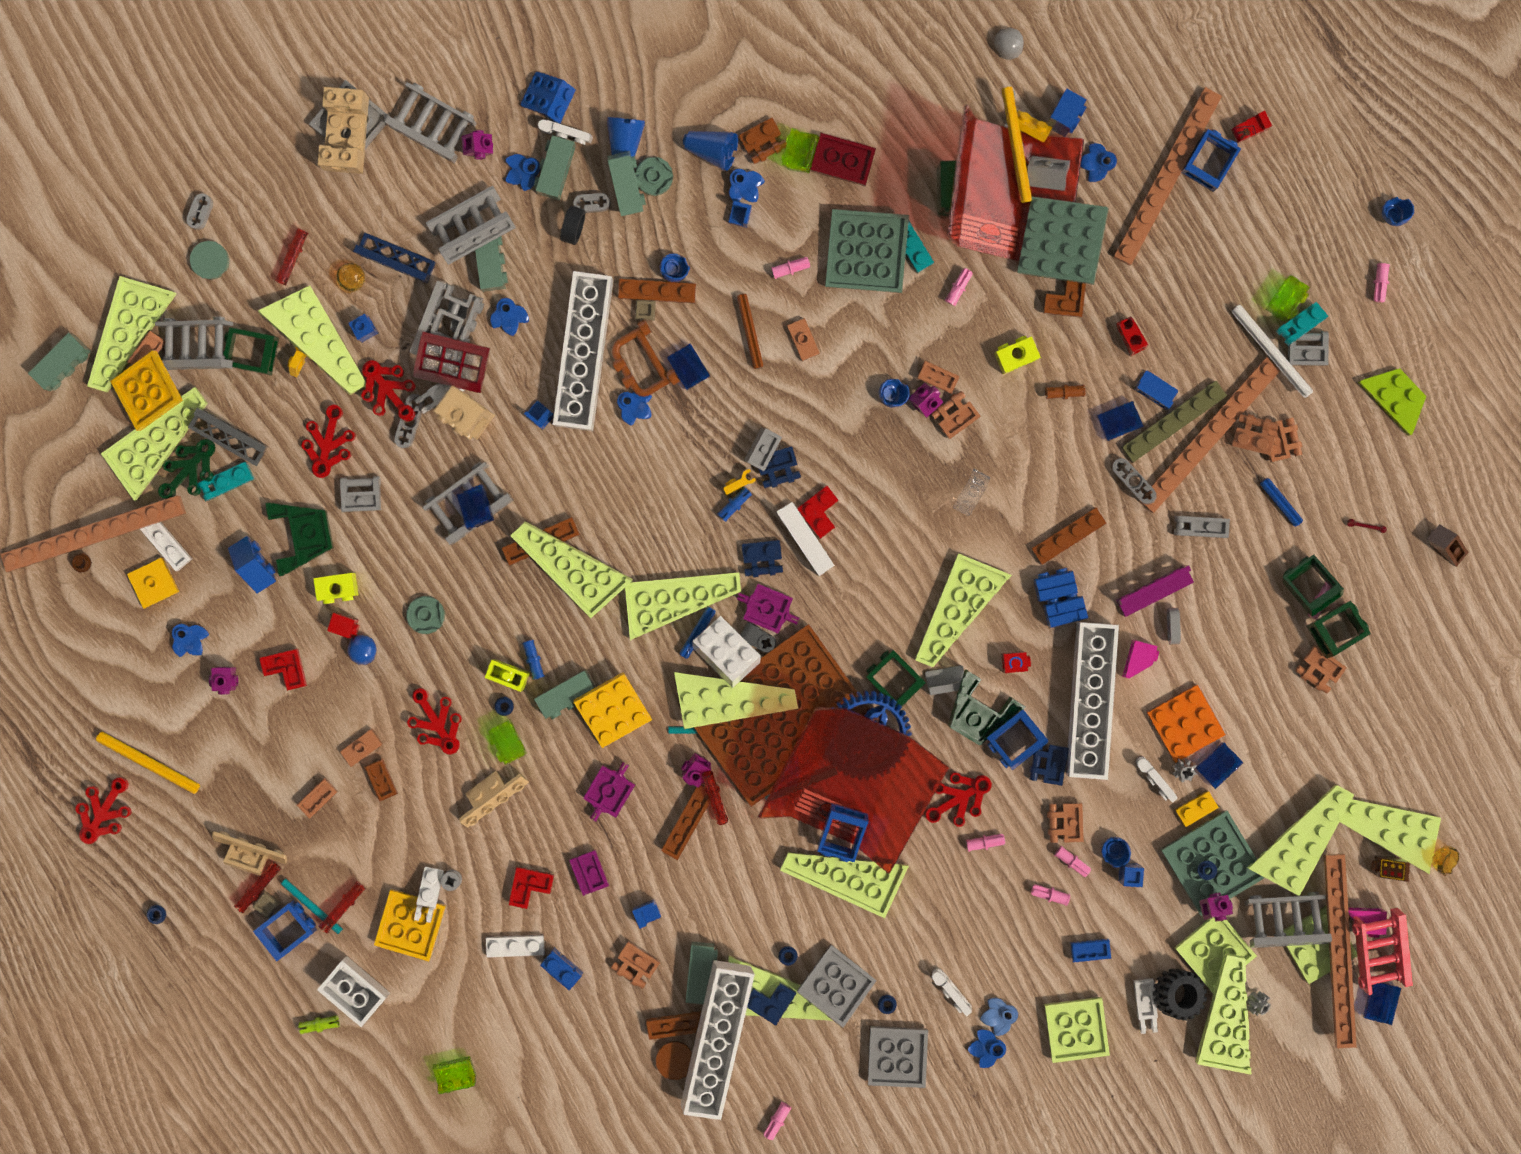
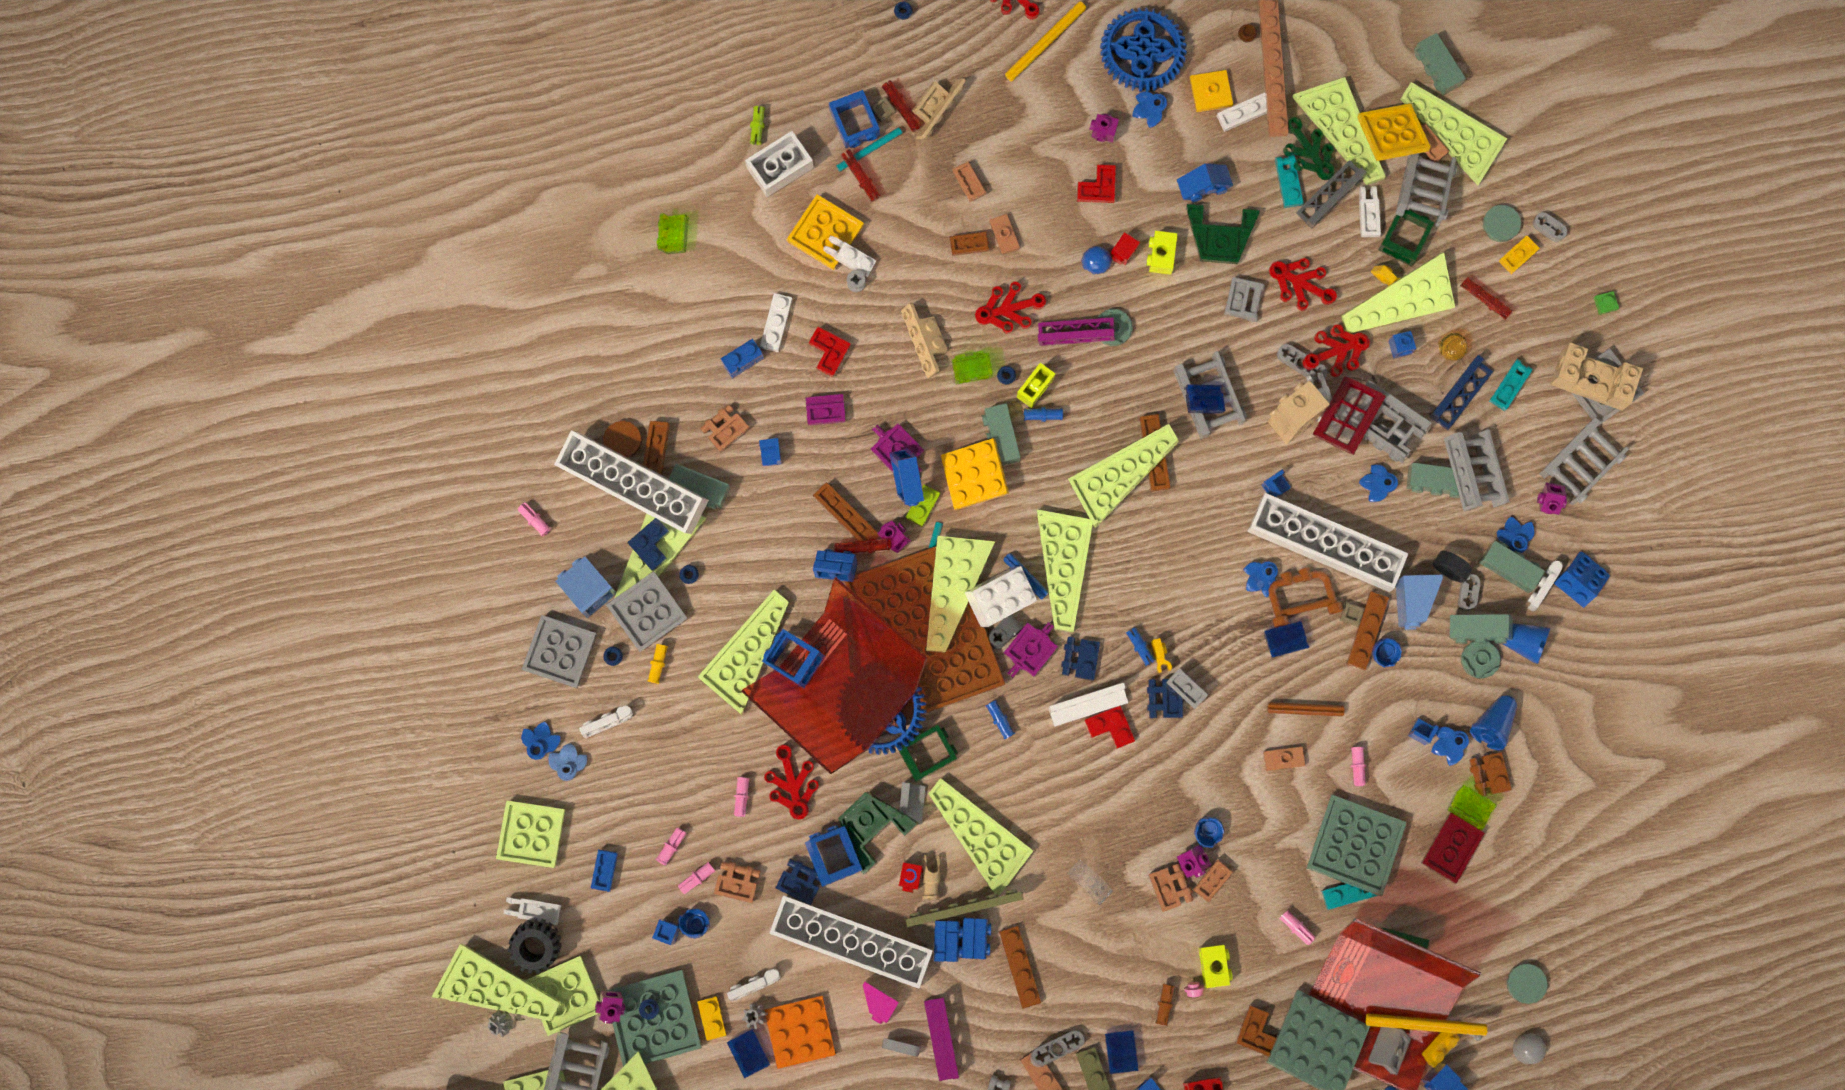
camera: 105 degrees right, 10 degrees down
(129, 671) = (1134, 49): none -> blue gear
(237, 235) = (1519, 255): none -> yellow plate
(237, 393) = (1369, 213): none -> white hinge
(262, 137) = (1606, 303): none -> bright green plate
(374, 212) = (1510, 385): none -> teal plate
(447, 650) = (1076, 336): none -> magenta fence
(615, 252) = (1415, 599): none -> medium blue slope
(636, 775) = (907, 477): none -> blue window
(656, 750) = (919, 513): none -> lime plate
(741, 818) = (835, 564): none -> blue brick
(829, 1051) = (585, 586): none -> medium blue slope
(843, 619) = (1000, 719): none -> blue pin
(882, 959) = (657, 663): none -> yellow pin
(949, 60) = (1526, 983): none -> sand green tile
(1013, 641) = (931, 880): none -> tan piece
(1034, 609) = (973, 905): none -> olive plate
(1043, 368) = (1194, 989): none -> bright pink plate

